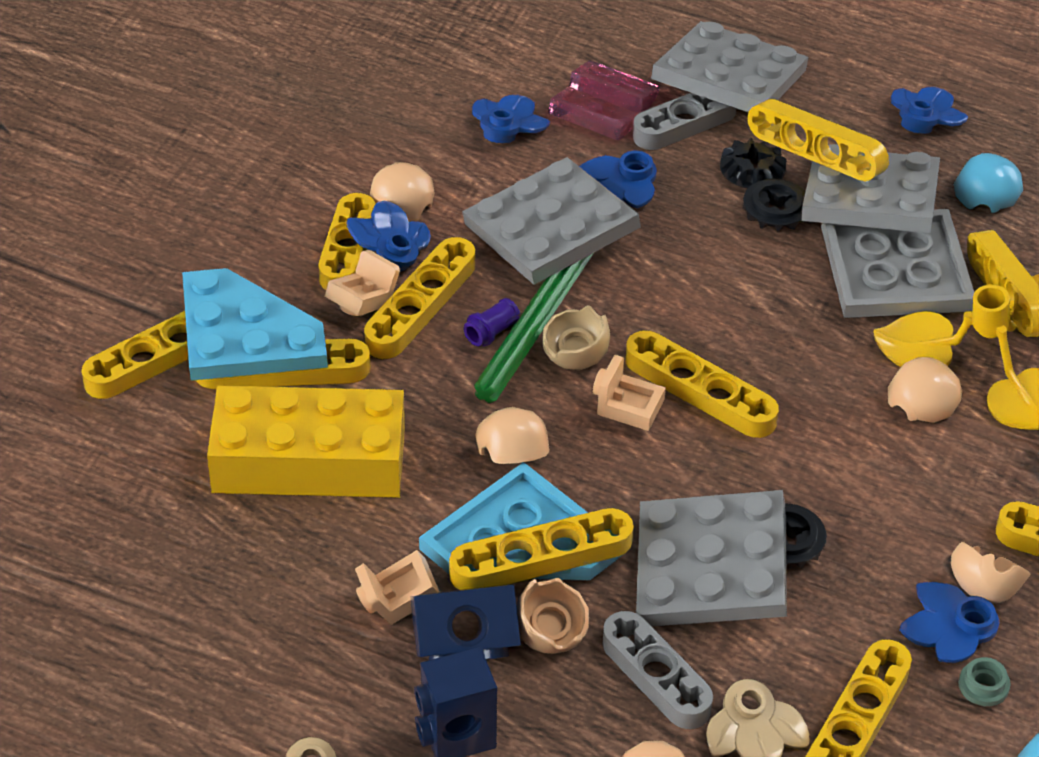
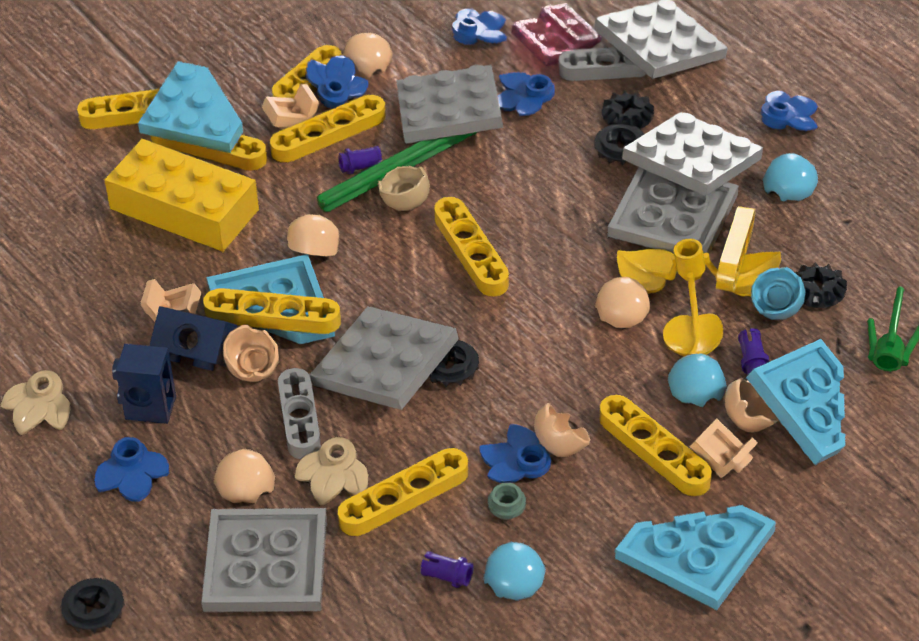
camera: 30 degrees right, 0 degrees up
(627, 397) = (408, 235): light nougat bracket -> none
(816, 146) = (669, 105): yellow beam -> none

